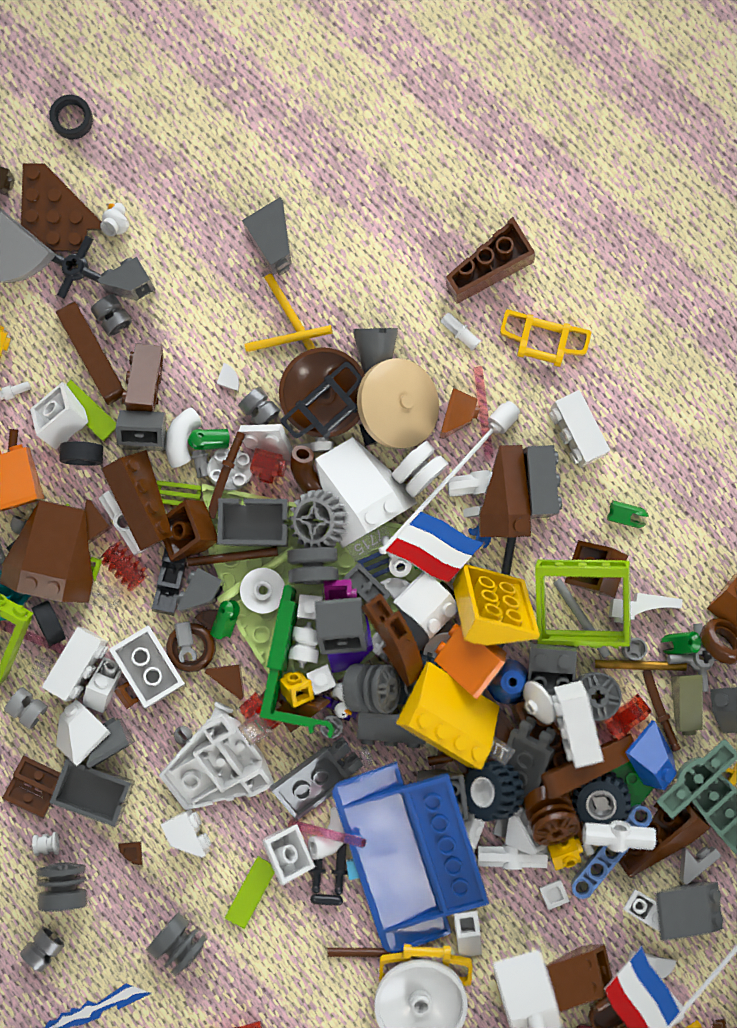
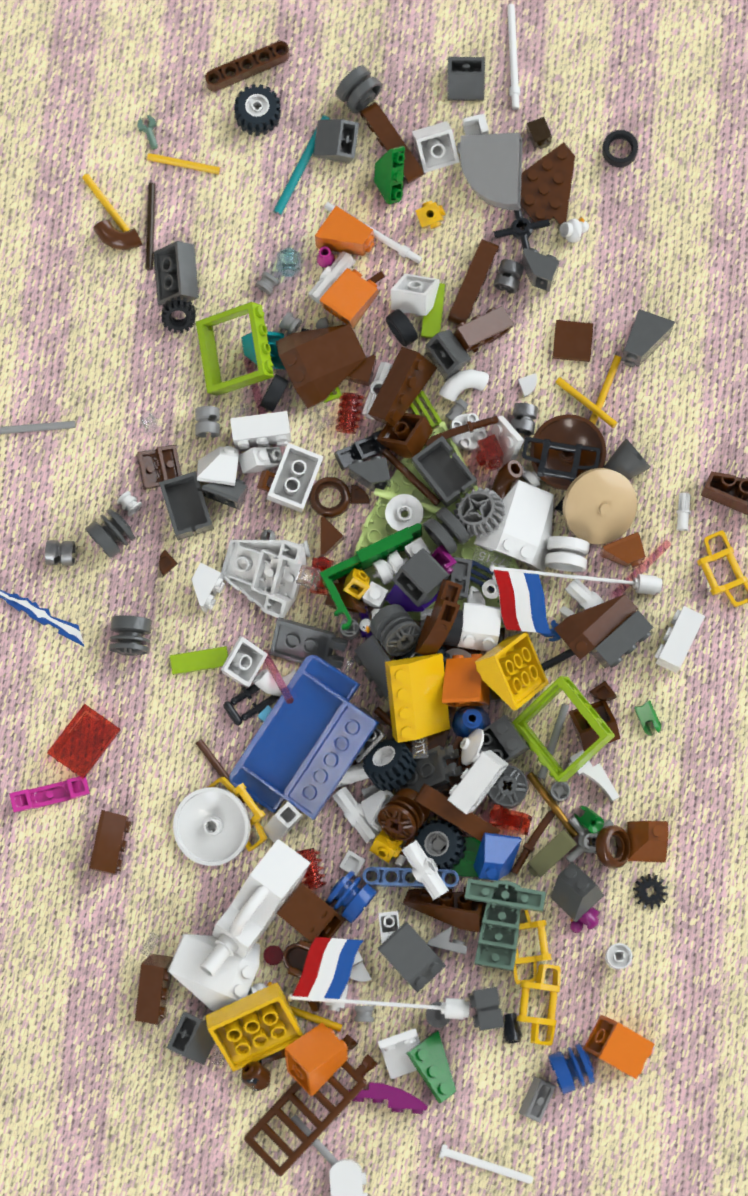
camera: 60 degrees right, 5 degrees down
(185, 640) = (331, 488): light grey bar -> none
(209, 439) = (477, 402): green piece -> none
(220, 304) = (573, 341): none -> reddish brown slope
(225, 619) = (366, 504): green piece -> none
(532, 938) = (312, 874): none -> clear red piece
(572, 536) = (603, 692): none -> reddish brown tile
(588, 923) = (351, 896): none -> blue wheel
(707, 996) = (364, 1014): none -> light grey wheel

